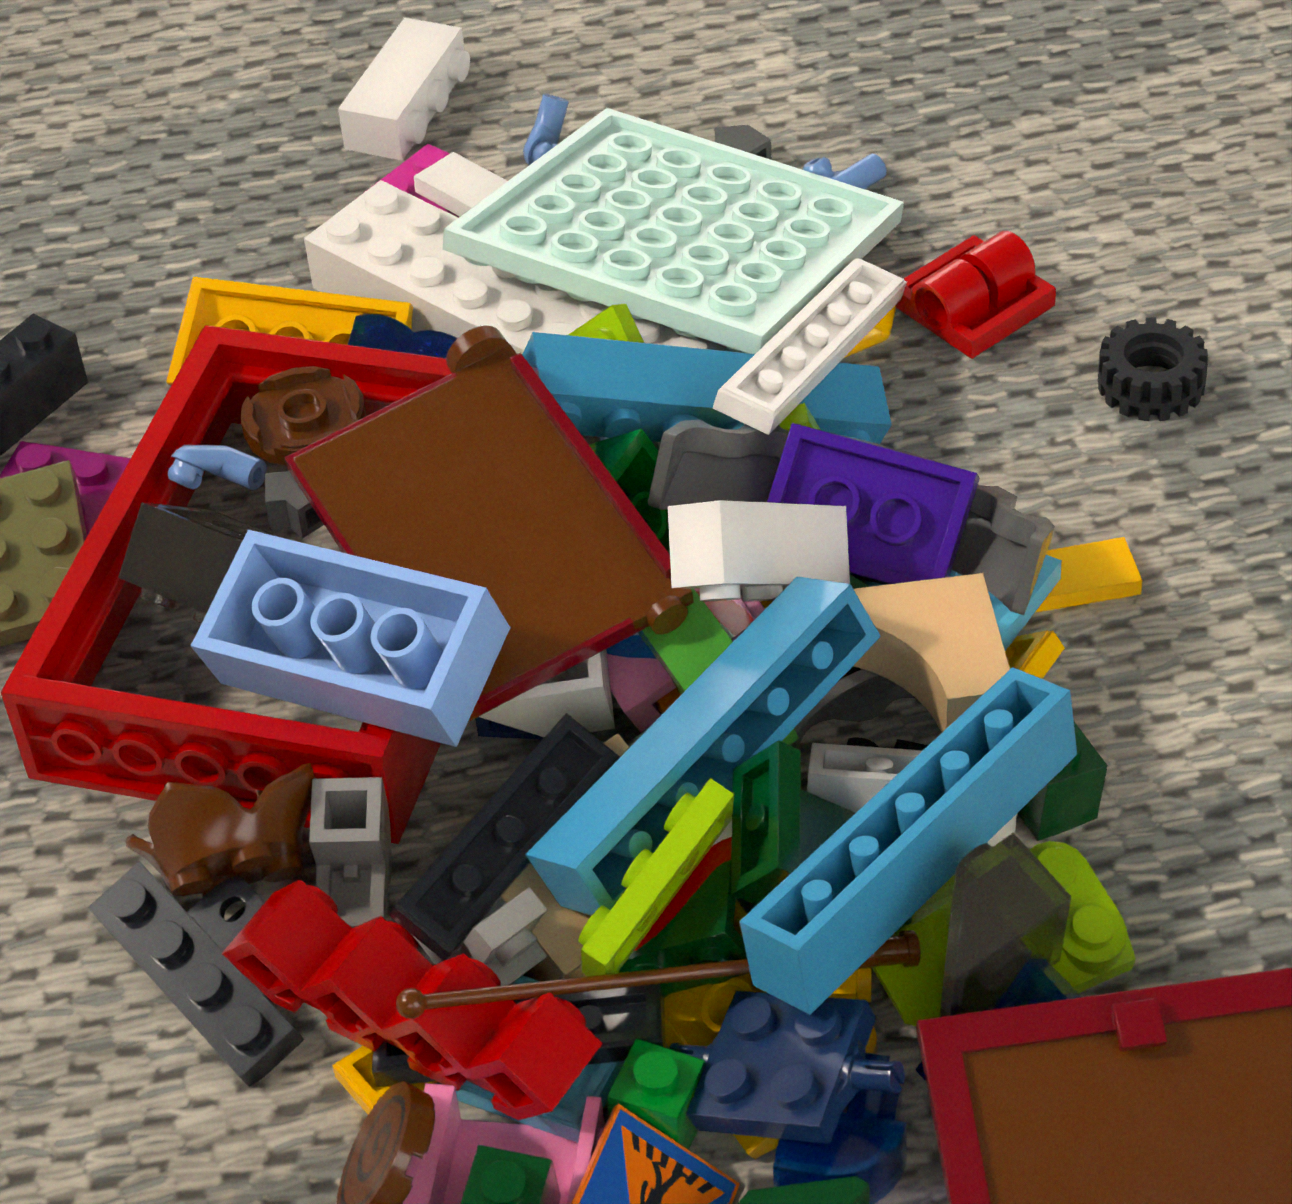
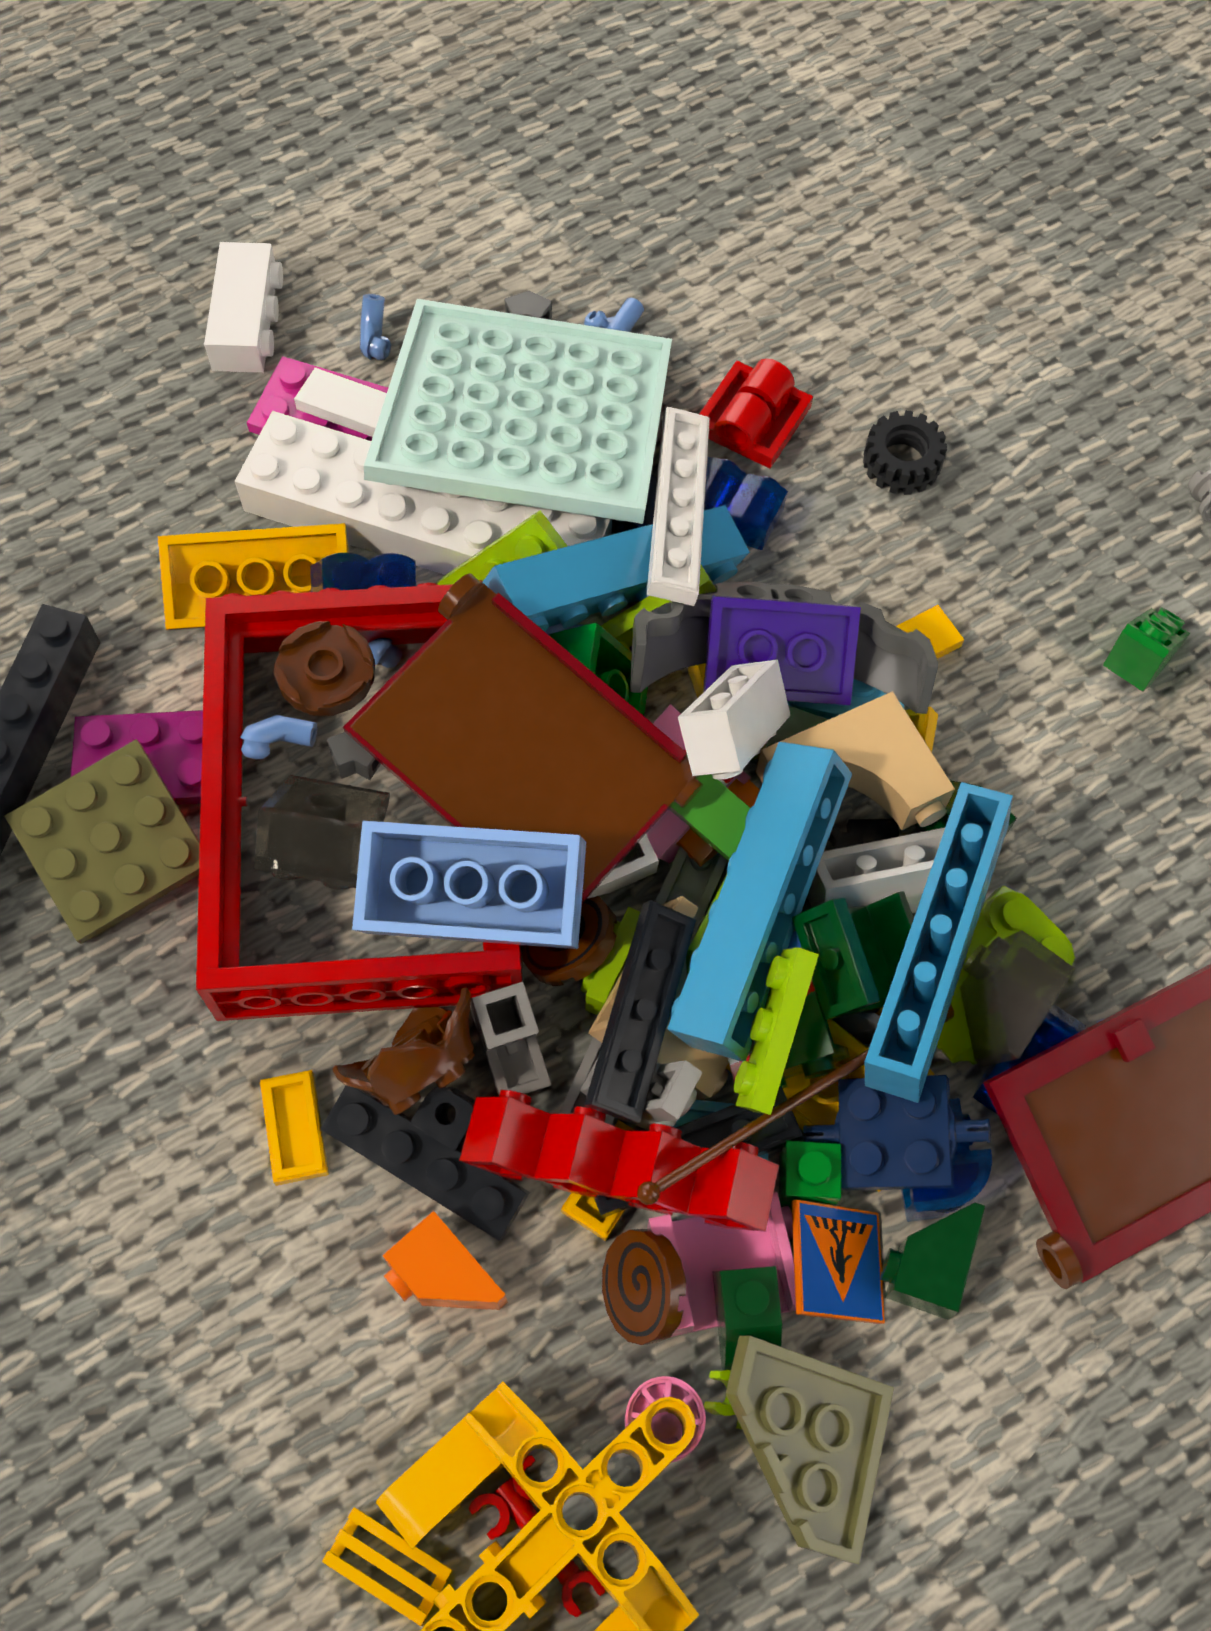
camera: 25 degrees left, 20 degrees up
(56, 904) = (293, 1127): none -> yellow tile
(151, 1085) = (440, 1270): none -> orange slope
(470, 775) = (595, 943): none -> reddish brown tile
(920, 382) = (751, 499): none -> clear blue brick

